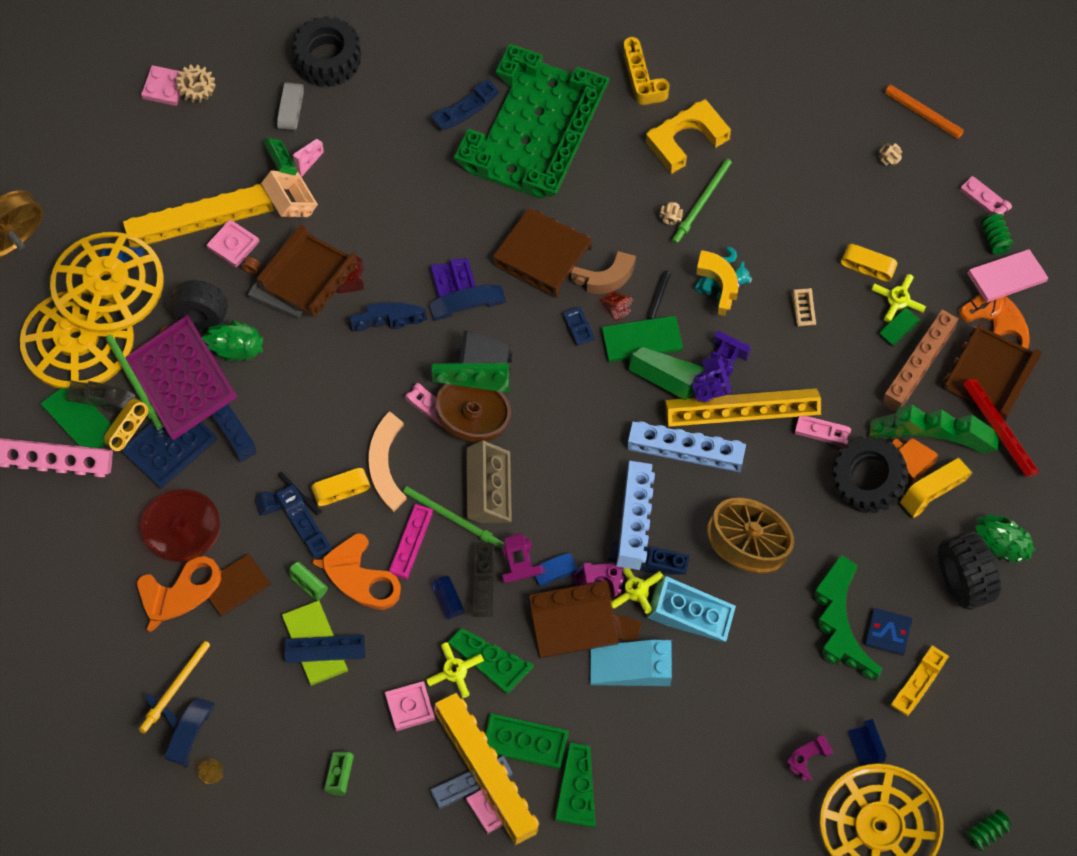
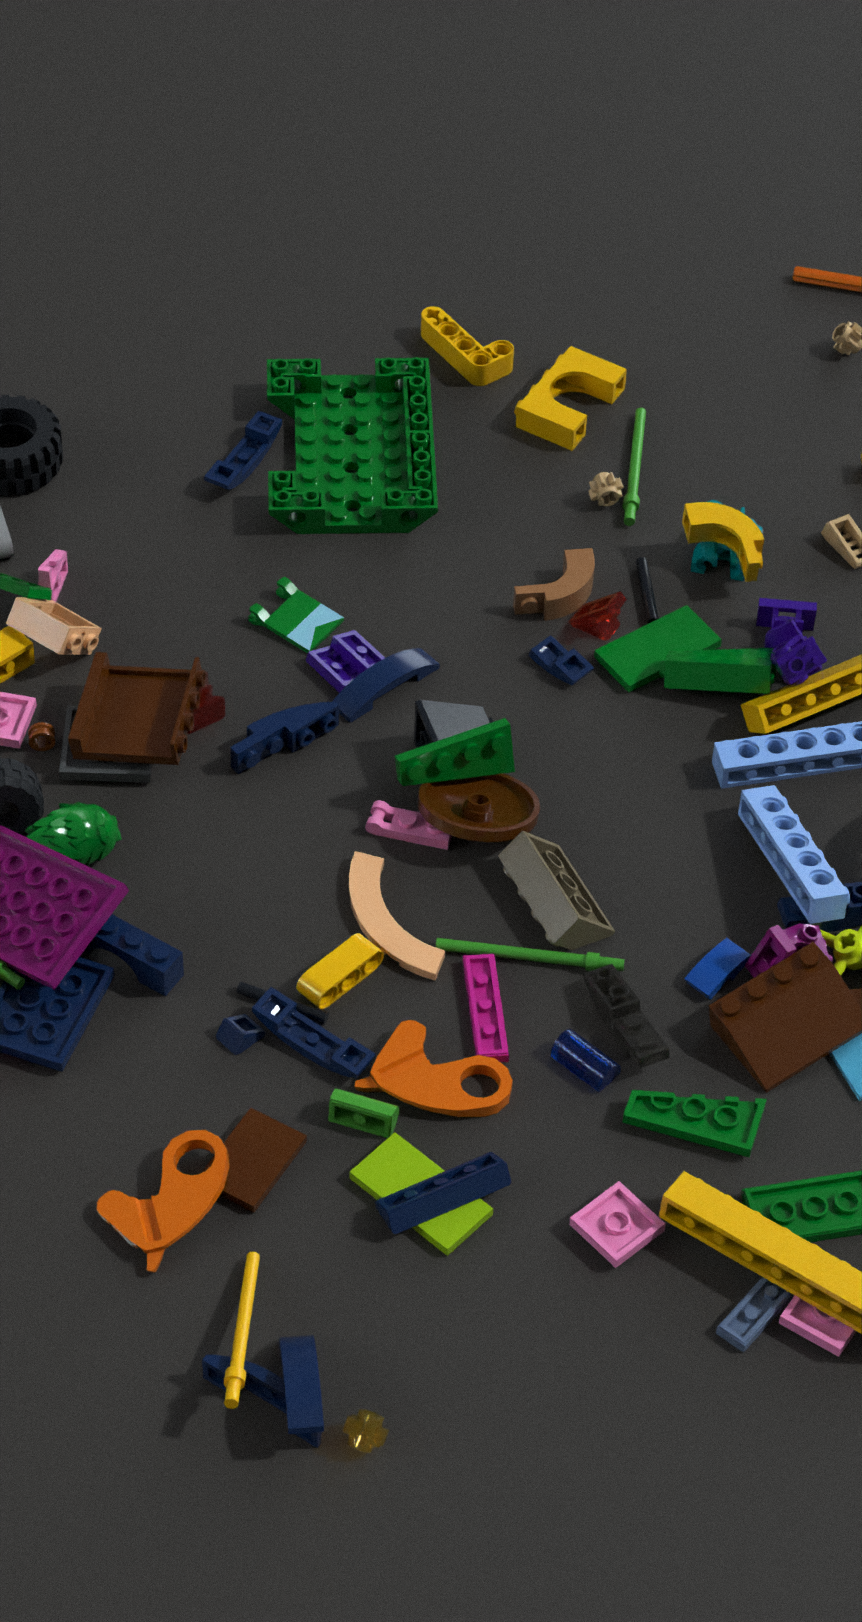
camera: 25 degrees left, 15 degrees down
(180, 525) = (126, 1103): clear red dish -> none
(339, 773) = (567, 1357): bright green brick -> none
(441, 238) = (298, 619): none -> green flag
(450, 665) = (655, 1148): neon yellow bar -> none
(522, 569) = (677, 978): magenta tile -> none
(541, 251) = (458, 586): reddish brown panel -> none

